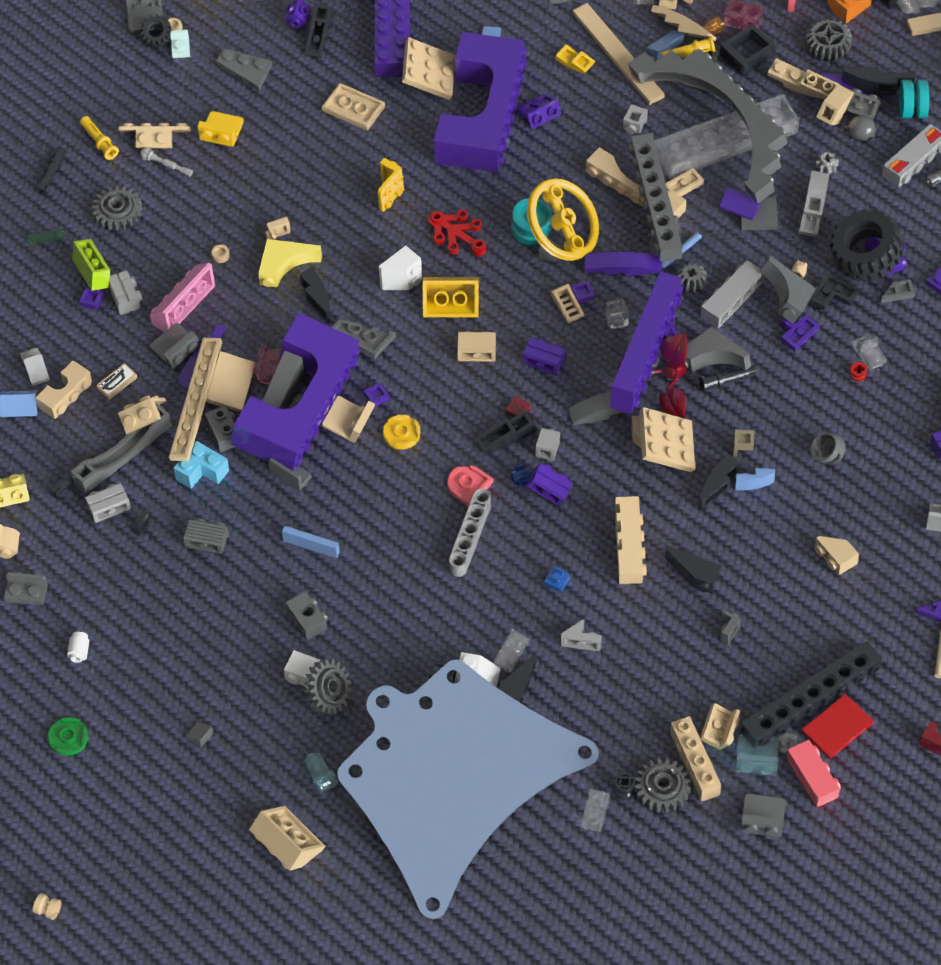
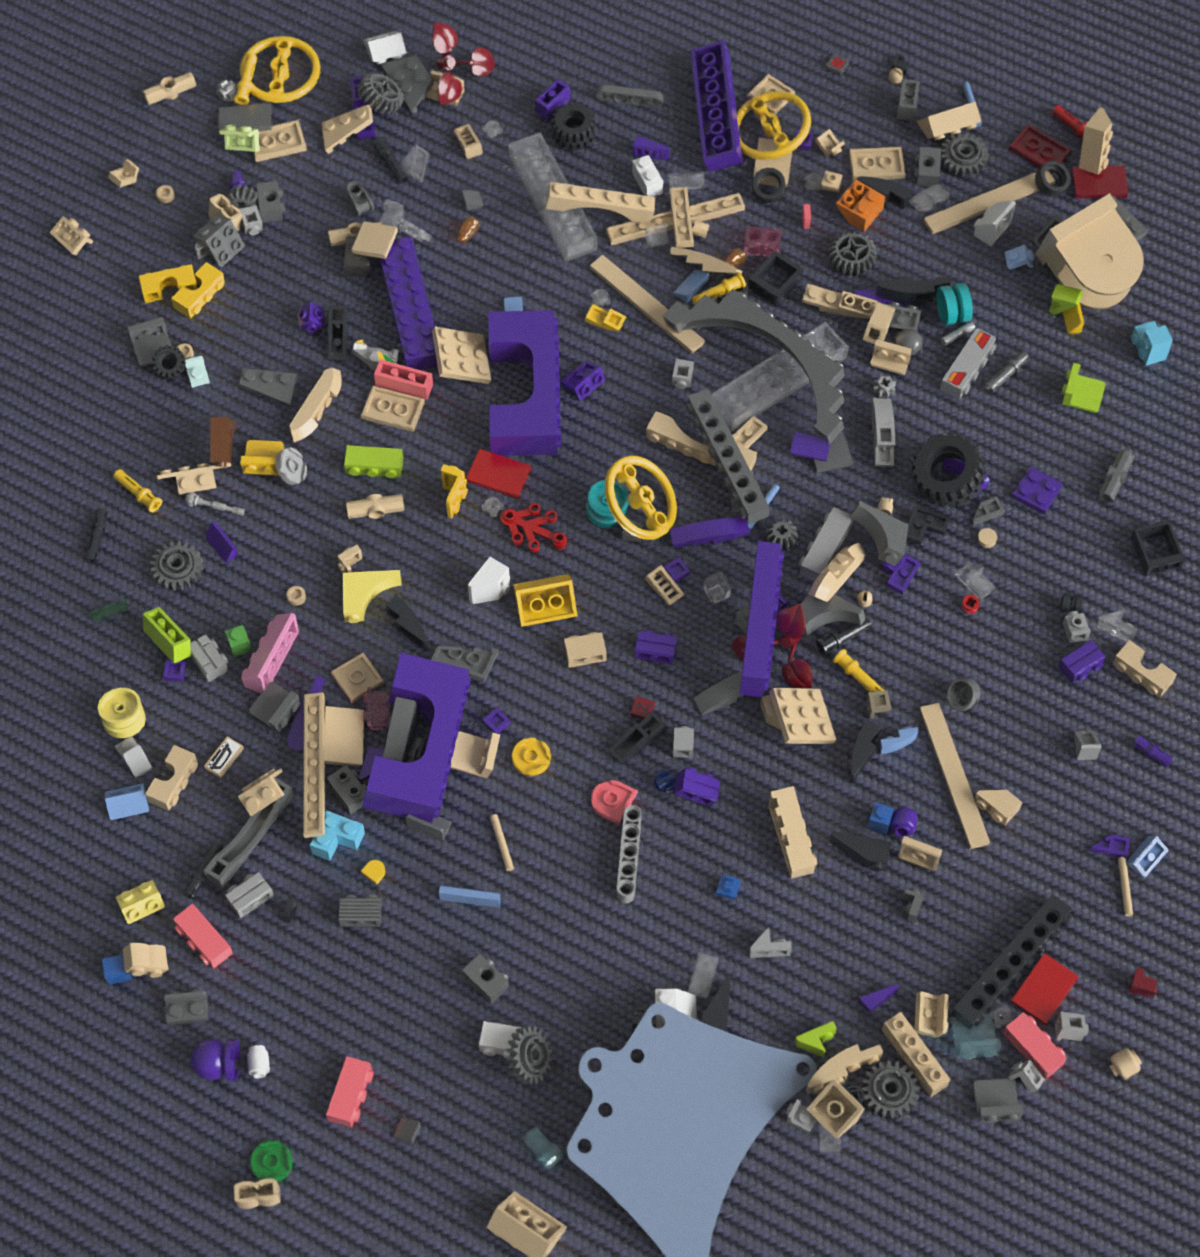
camera: 15 degrees left, 5 degrees up
(33, 324) = (121, 712): none -> light yellow wheel
(39, 636) = (214, 1059): none -> dark purple tile
(49, 758) = (251, 1194): none -> tan brick
(55, 530) = (202, 936): none -> coral brick
(154, 689) = (350, 1092): none -> coral brick
(156, 282) = (238, 641): none -> bright green brick
(163, 195) = (221, 542): none -> dark purple slope
(184, 103) = (221, 440): none -> reddish brown arch
(228, 504) = (374, 871): none -> yellow tile
(244, 139) = (291, 466): none -> light grey tile
(255, 332) = (356, 676): none -> tan tile
(282, 89) = (312, 409): none -> tan brick
(313, 188) = (375, 506): none -> tan piece
(323, 148) = (373, 461): none -> lime brick
(352, 60) = (372, 355): none -> light grey animal
(353, 501) = (501, 842): none -> tan bar
(369, 81) = (403, 379): none -> coral brick
(421, 203) = (492, 501): none -> clear plate
(437, 179) = (498, 473): none -> red tile
(571, 793) = (800, 1117): none -> light grey bracket
(575, 40) = (600, 297): none -> clear plate
(599, 726) = (812, 1039): none -> lime slope
(604, 789) = (836, 1109): none -> tan slope
(615, 756) = (837, 1066): none -> tan slope
(673, 703) = (875, 999): none -> dark purple piece
(718, 544) = (880, 818): none -> blue brick
(728, 407) = (852, 668): none -> yellow pin
(735, 318) = (837, 572): none -> tan brick
(740, 552) = (903, 822): none -> dark purple head
(746, 581) = (919, 853): none -> tan tile
(761, 349) = (860, 598): none -> tan hinge
(800, 797) = (1028, 1073): none -> light grey bracket
(801, 521) = (954, 776): none -> tan tile
(840, 137) = (890, 357): none -> tan bracket
(853, 763) = (1070, 1026): none -> light grey brick
(891, 315) = (987, 538): none -> tan tile
(897, 806) = (1125, 1063): none -> tan head
(908, 129) = (956, 334): none -> light grey piece

